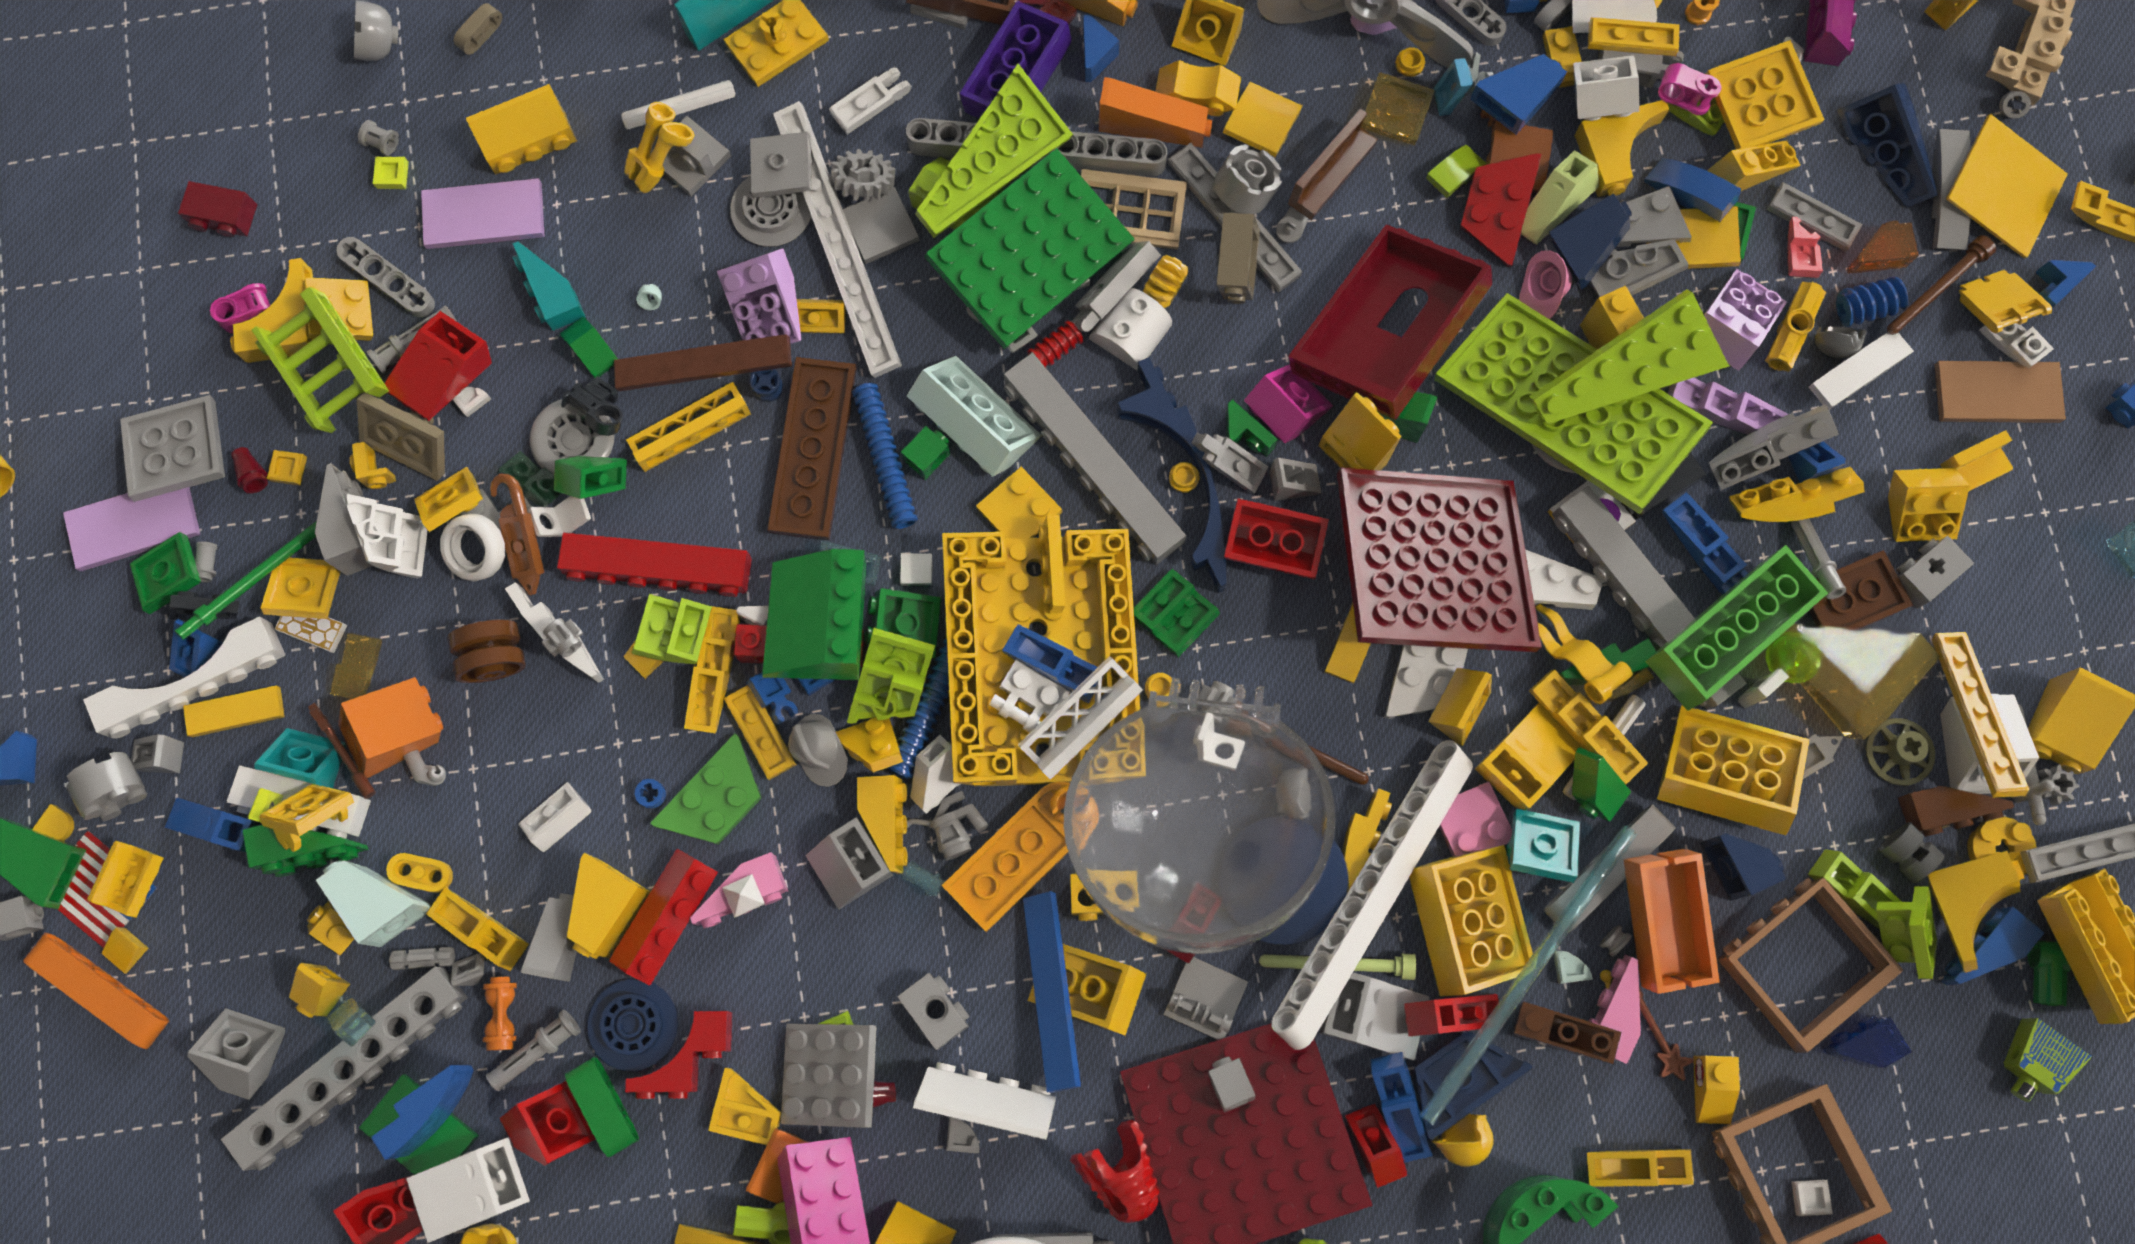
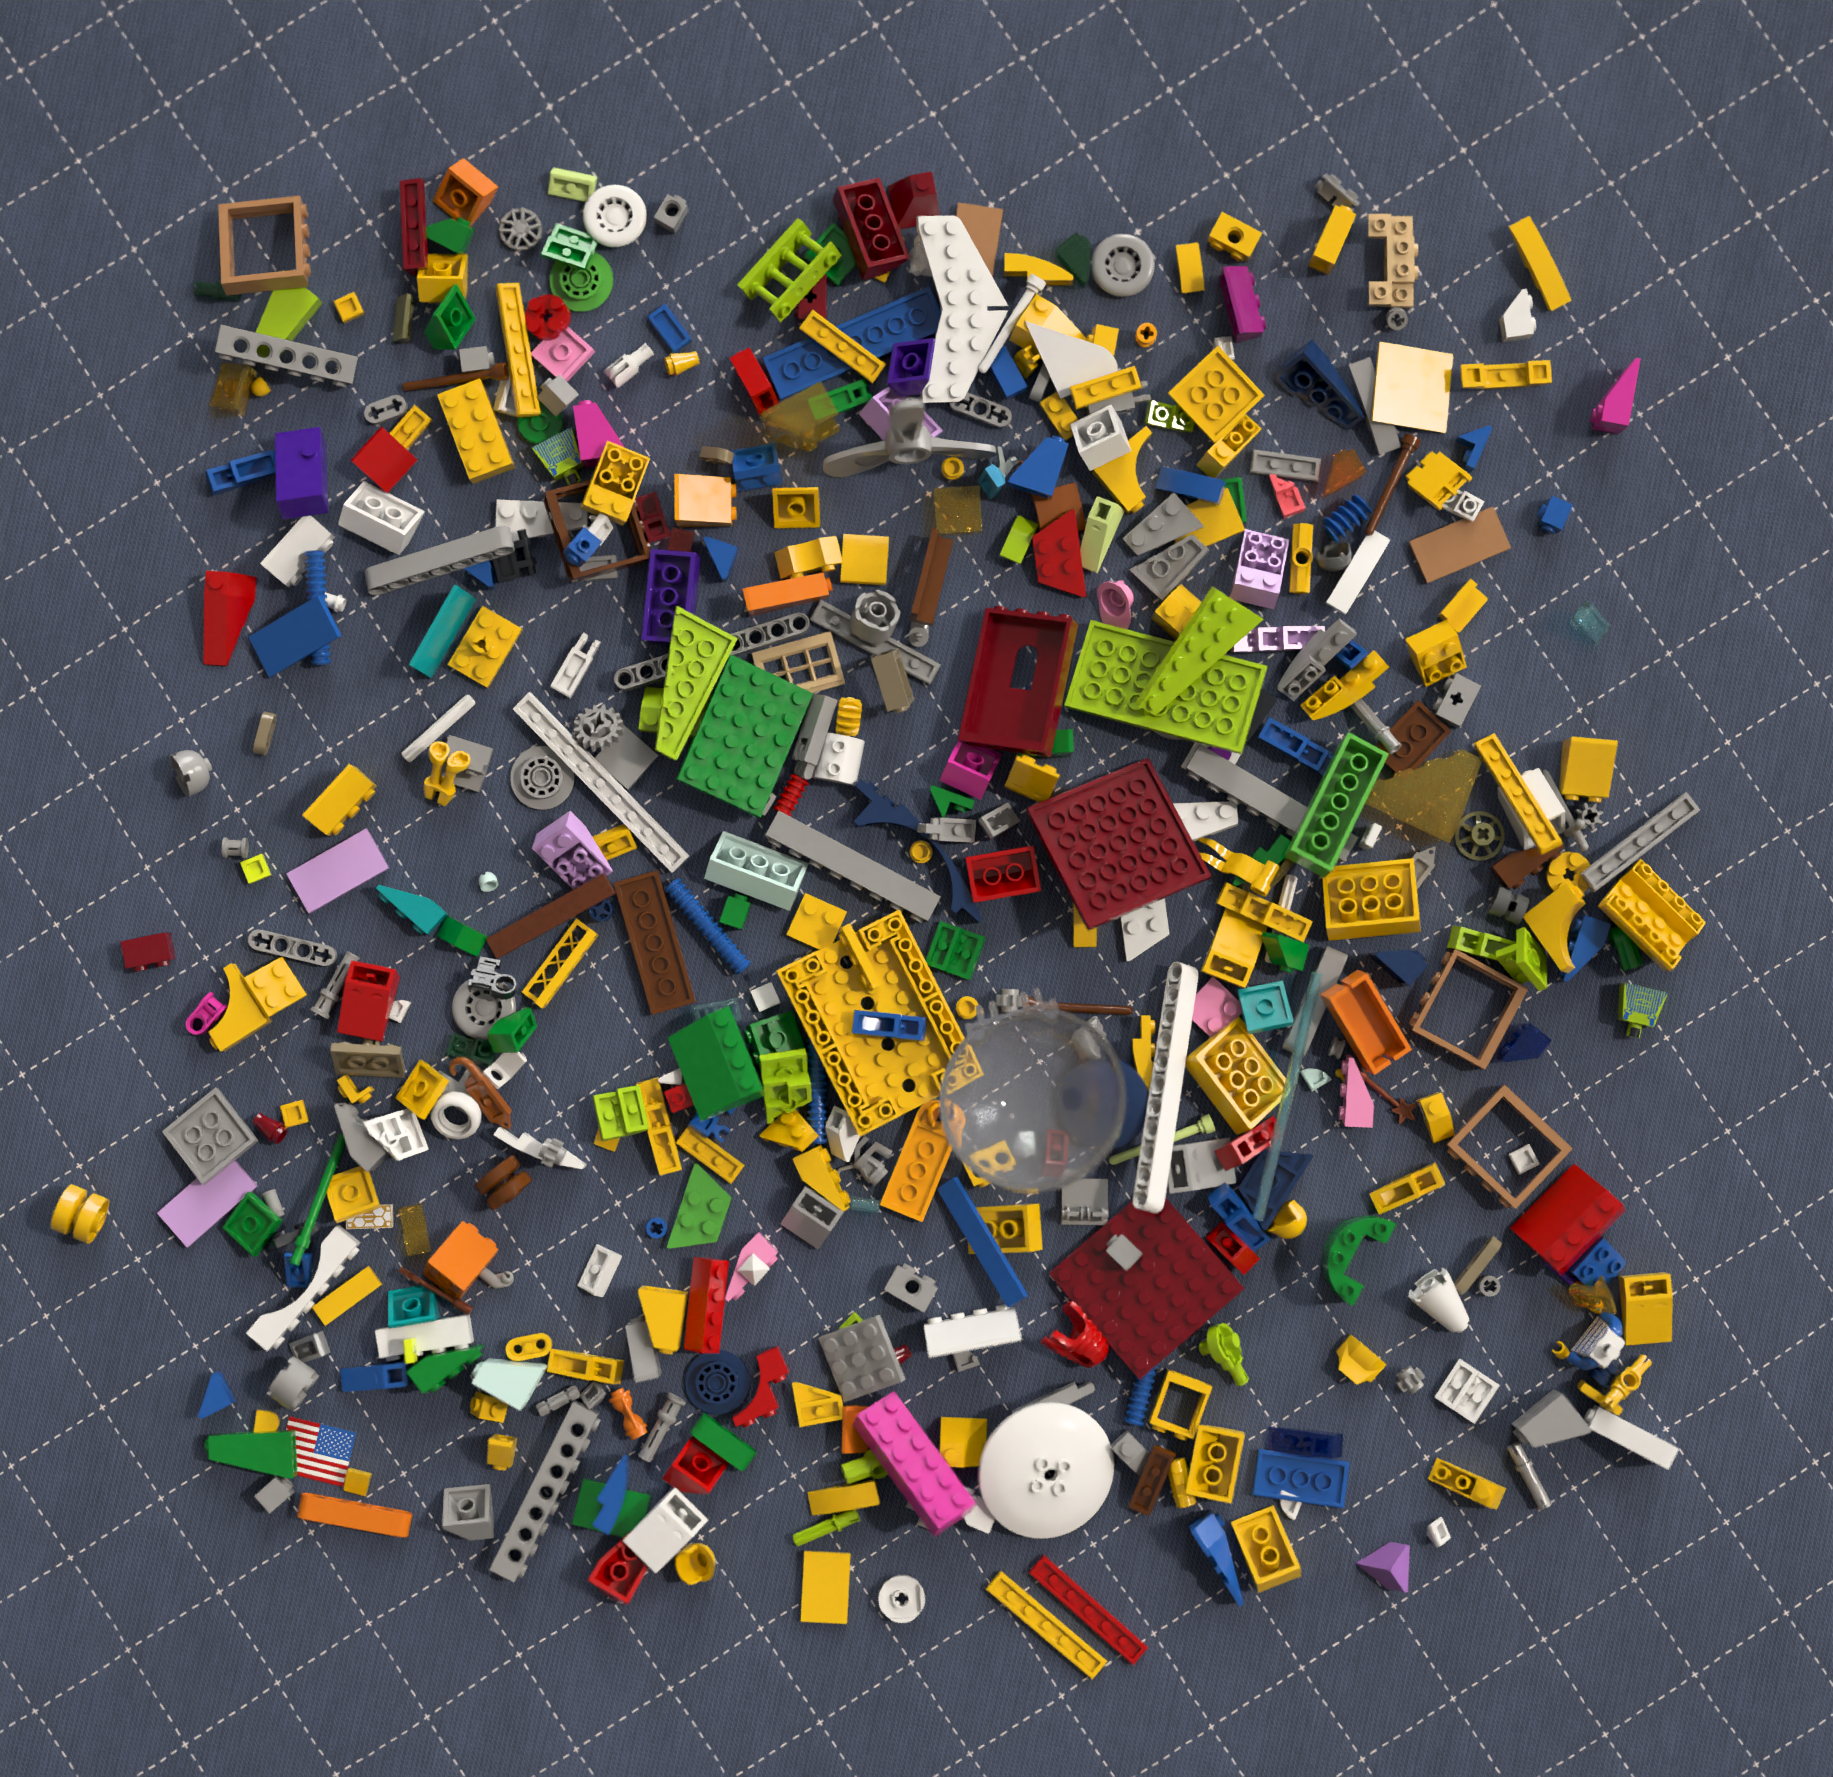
camera: 25 degrees left, 10 degrees up
(125, 878) = (337, 1436): yellow bracket -> none
(281, 815) = (455, 1331): yellow piece -> none
(349, 357) = (308, 1023): lime fence -> none
(350, 1021) = (534, 1460): clear light blue slope -> none
(654, 563) = (585, 1071): red brick -> none
(780, 164) = (537, 747): light grey plate -> none
(818, 750) = (756, 1150): light grey piece -> none
(1033, 690) = (884, 1049): white plate -> none
(1088, 725) = (932, 1058): white fence -> none
(1208, 741) = (1016, 1038): white bracket -> none
(1462, 703) = (1174, 933): yellow slope -> none
(1566, 1033) = (1326, 1124): reddish brown slope -> none
(1591, 237) = (1134, 557): dark blue slope -> none
(1686, 87) = (1157, 414): dark pink piece -> none
(1795, 655) = (1382, 806): clear neon green hat -> none

